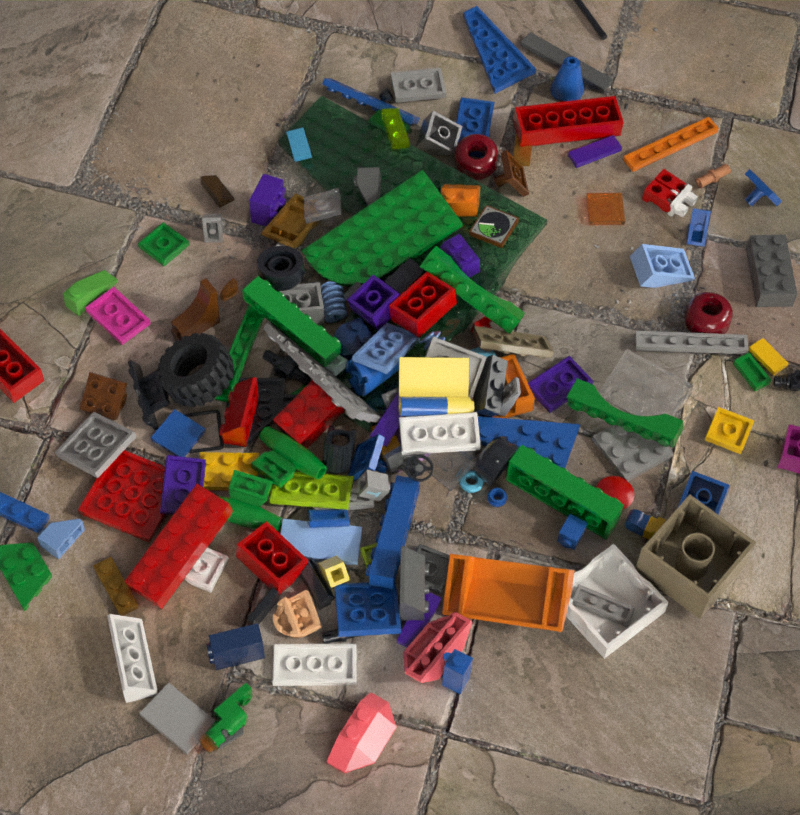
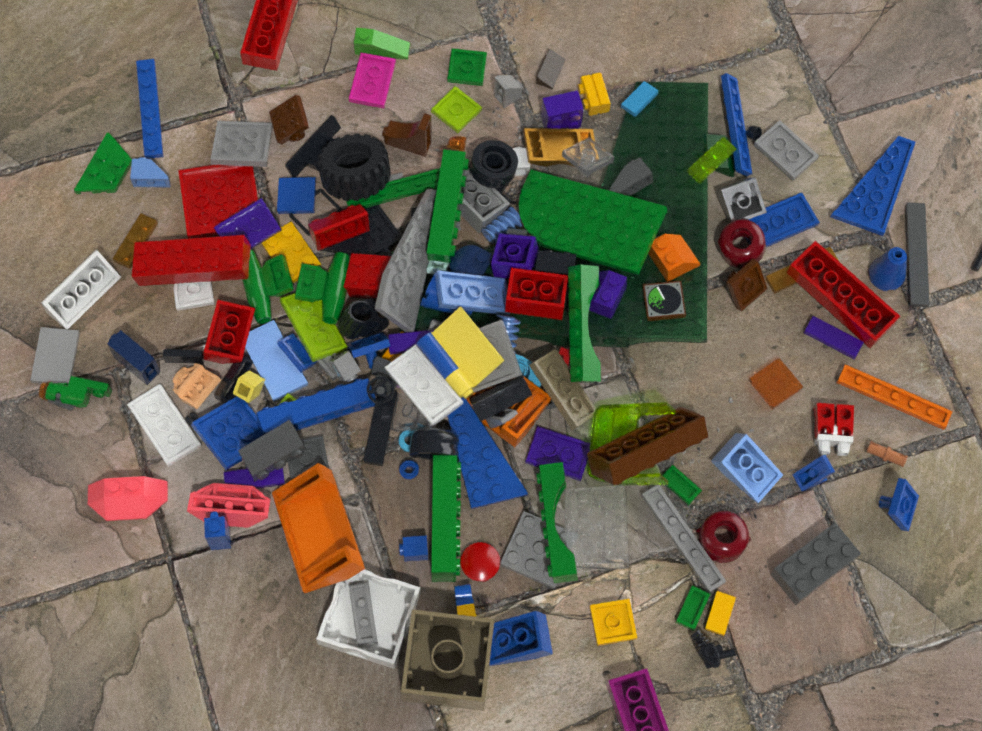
camera: 55 degrees right, 10 degrees up
(193, 271) = (456, 109): none -> lime tile
(260, 166) = (594, 94): none -> yellow brick
(448, 500) = (380, 431): none -> black tile
(582, 339) = (619, 419): none -> clear neon green windscreen
(606, 312) = (647, 446): none -> reddish brown brick
(644, 319) = (681, 485): none -> green tile

